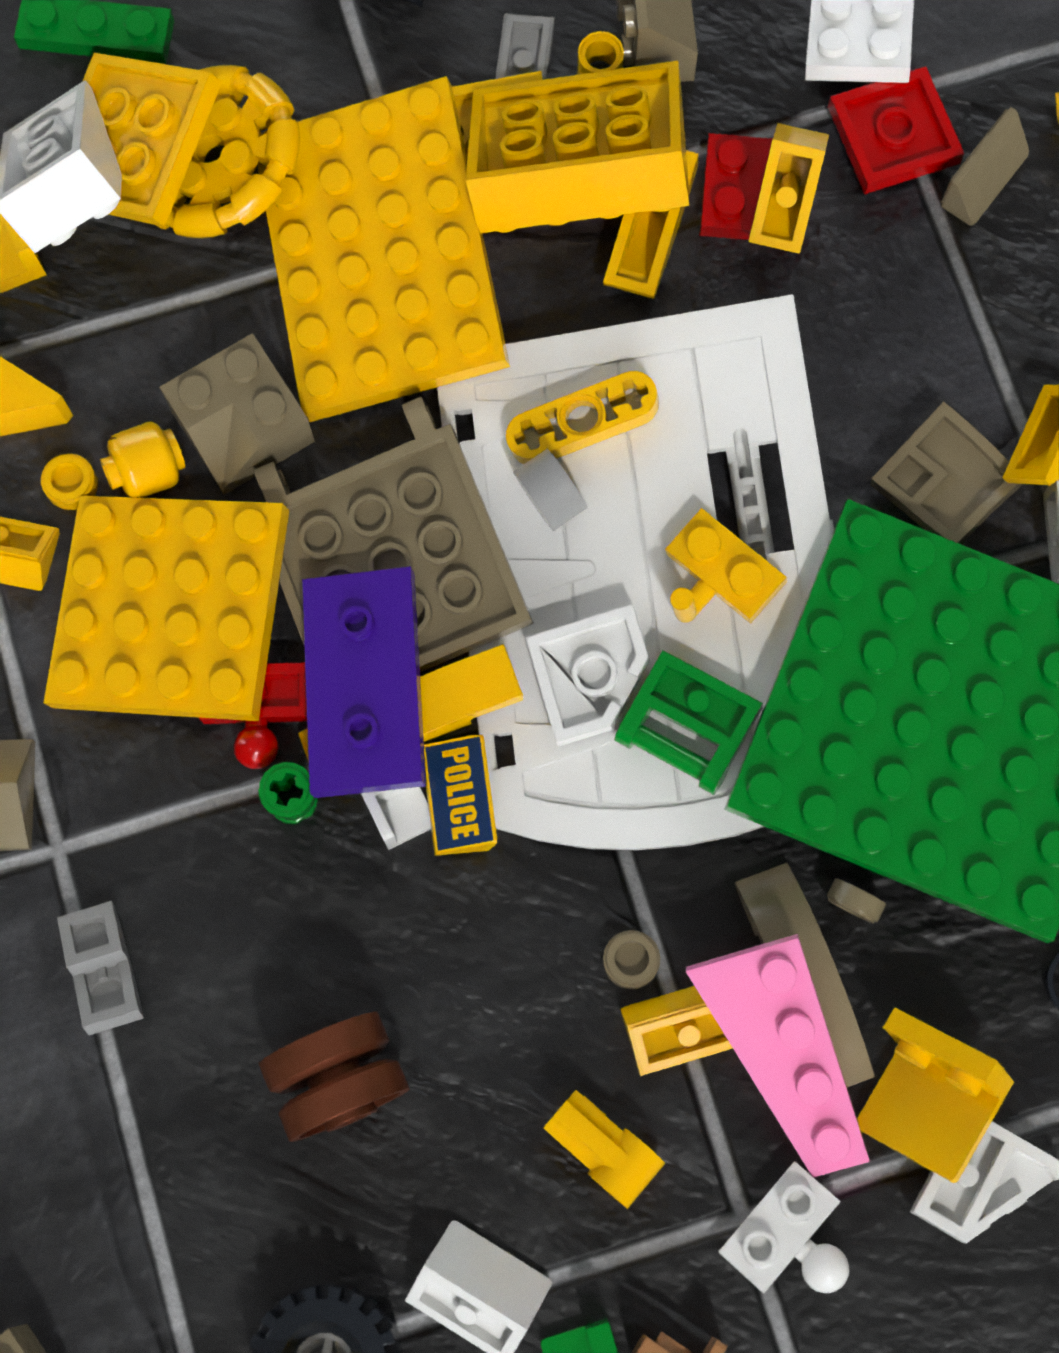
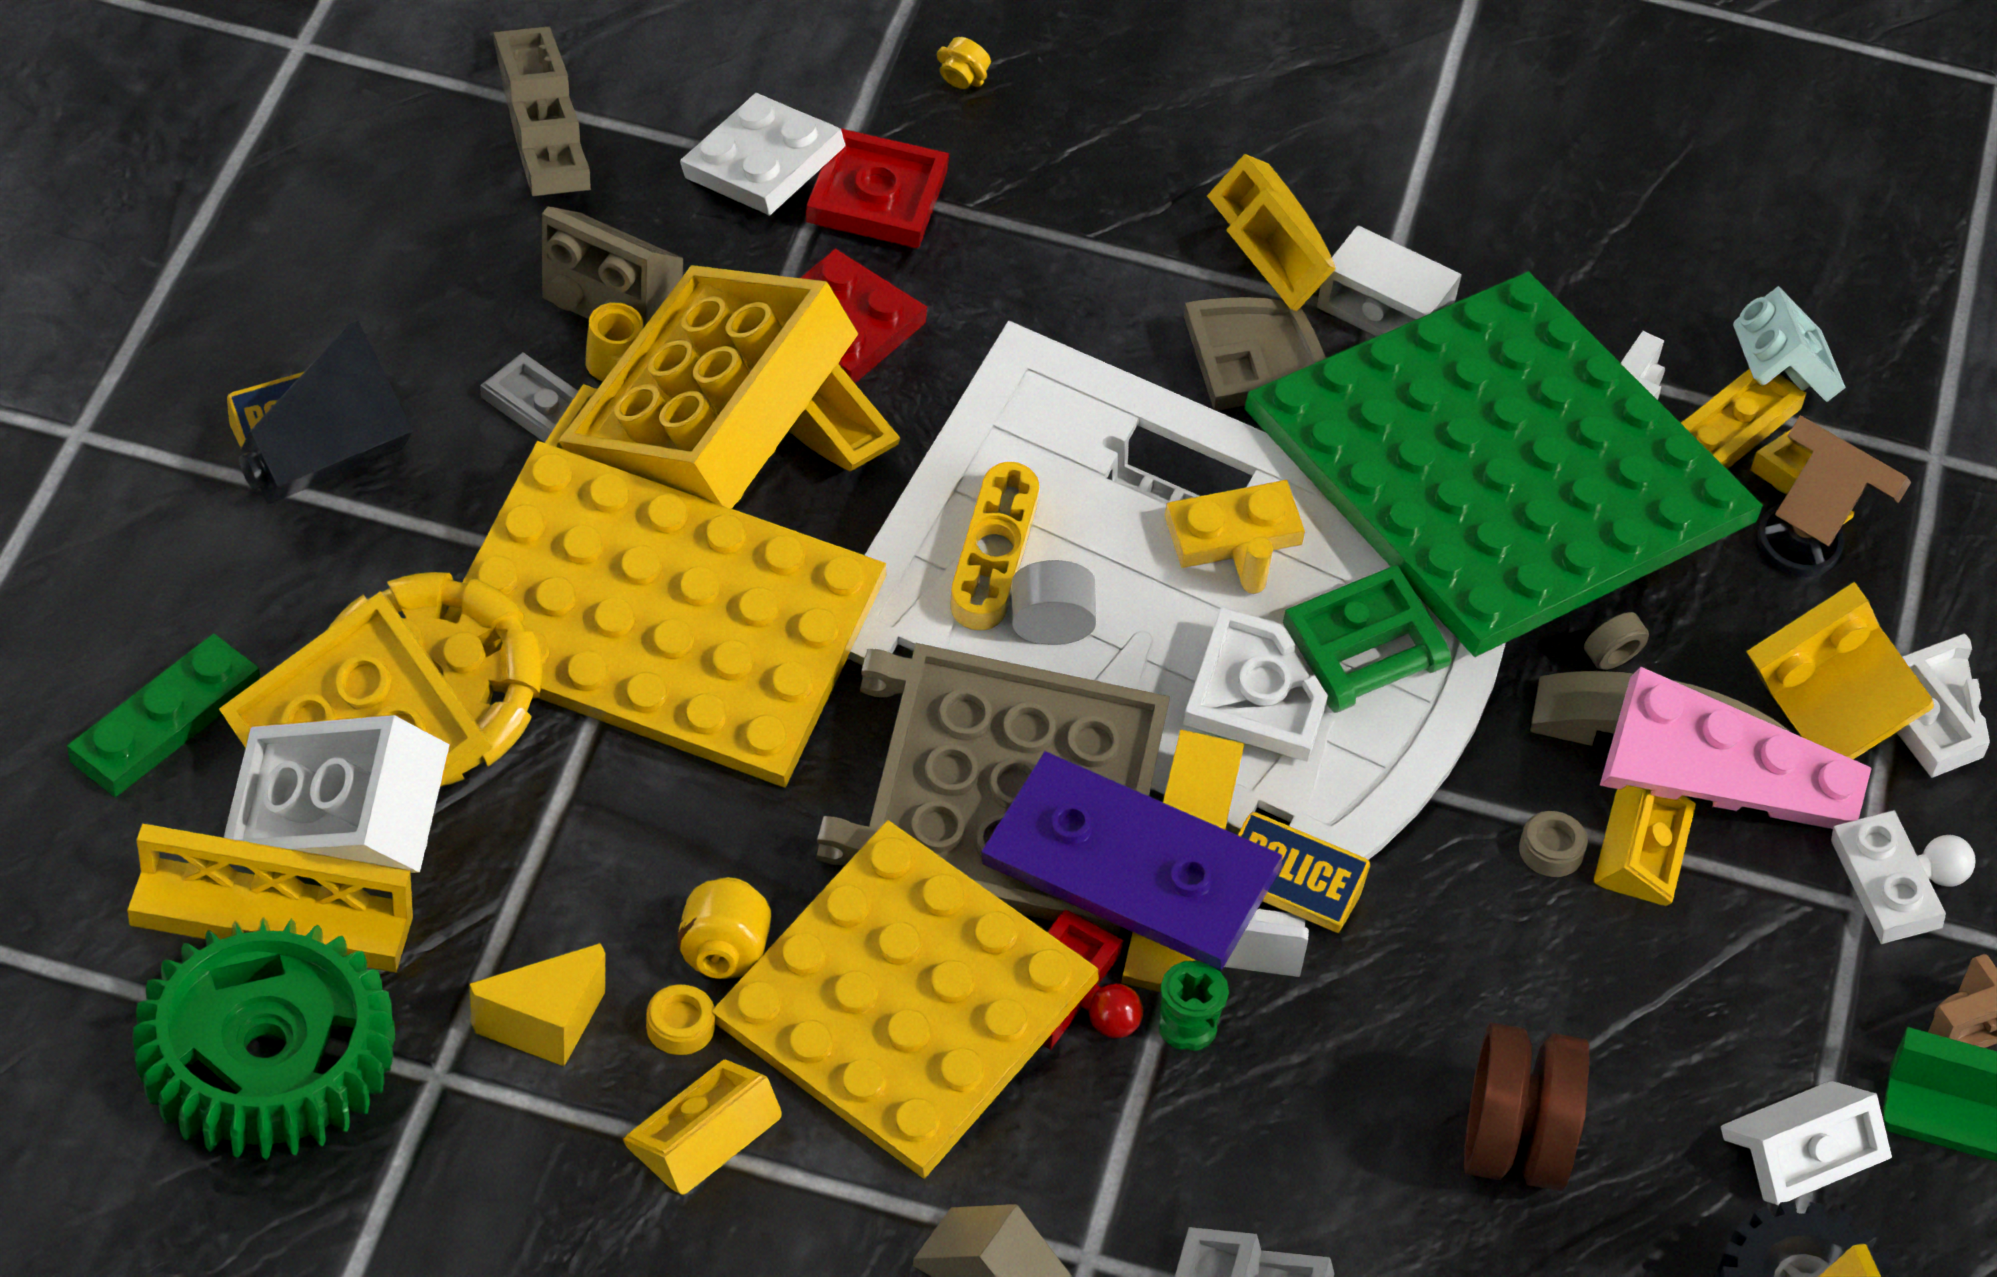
camera: 65 degrees left, 25 degrees down
(238, 413) = (742, 818): dark tan slope -> none
(613, 1156) = (1744, 953): yellow piece -> none
(788, 188) = (886, 271): yellow slope -> none
(987, 169) = (969, 155): dark tan slope -> none

